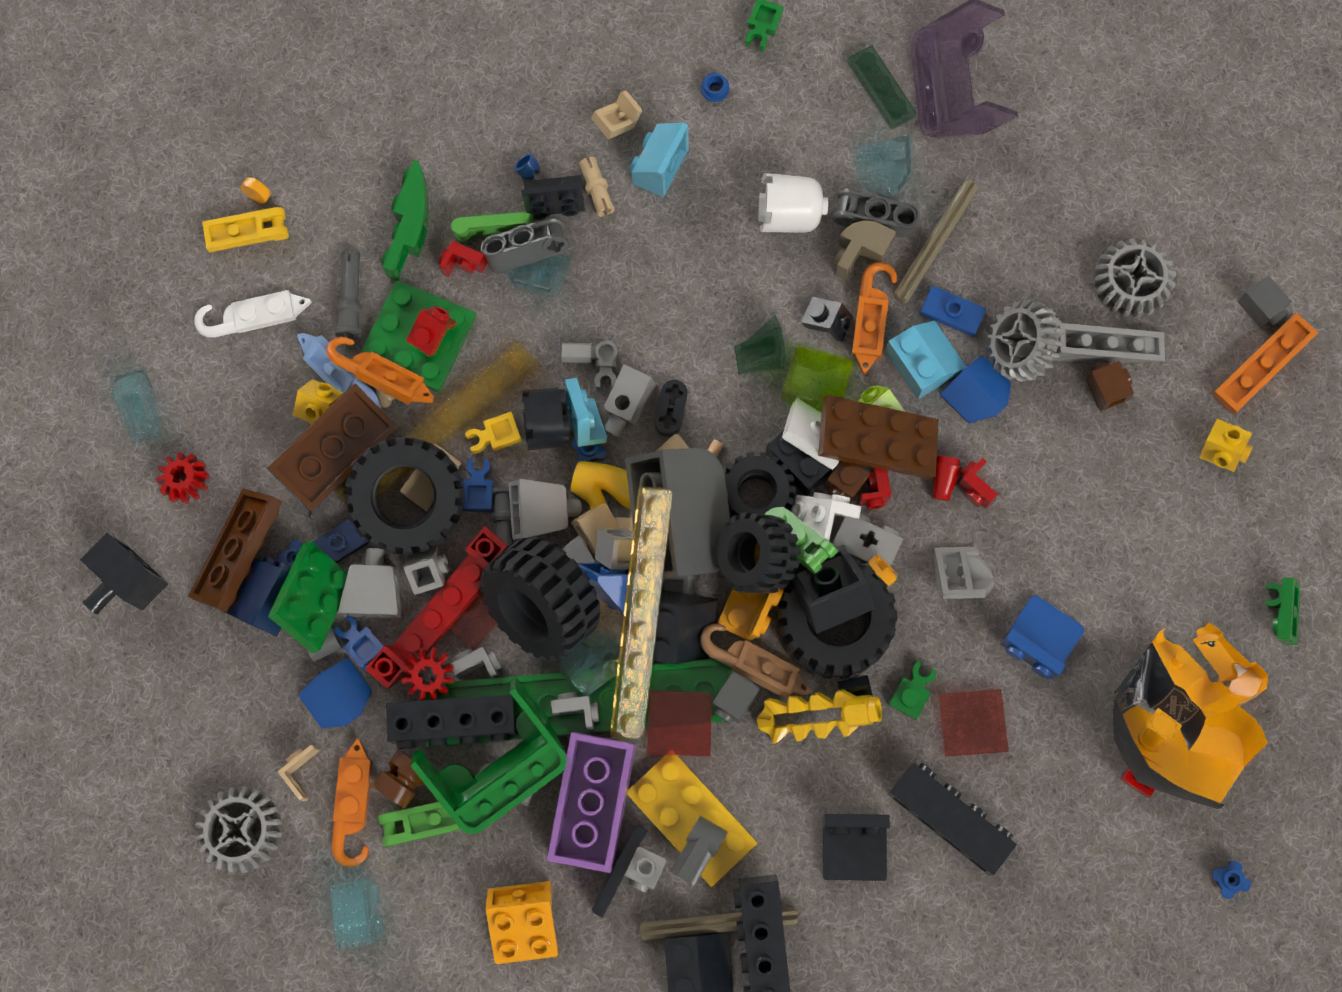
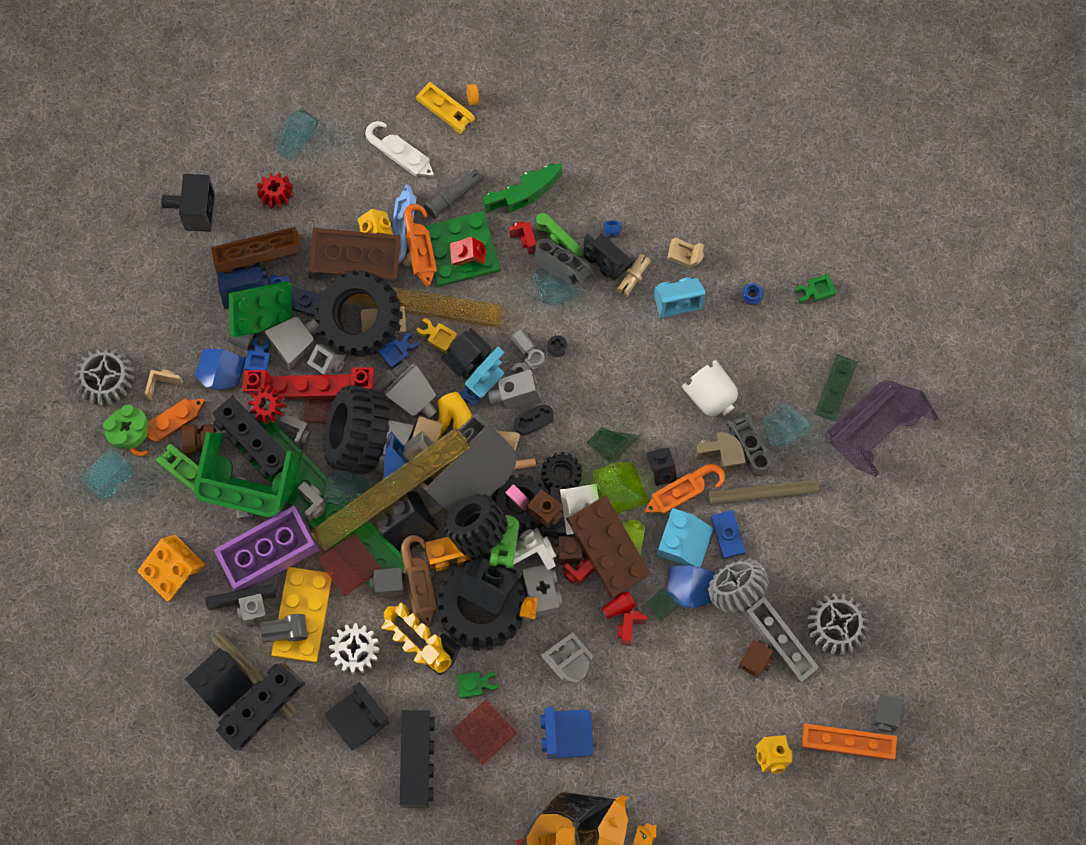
camera: 45 degrees right, 5 degrees down
(303, 850) = (118, 420): none -> bright green plate
(610, 313) = (563, 343): none -> black bush
(753, 407) = (561, 460): none -> black tyre
(753, 487) = (518, 497): none -> bright pink beam
(760, 777) = (345, 648): none -> white gear
(792, 468) = (545, 509): none -> reddish brown brick
(977, 434) = (661, 604): none -> clear green plate

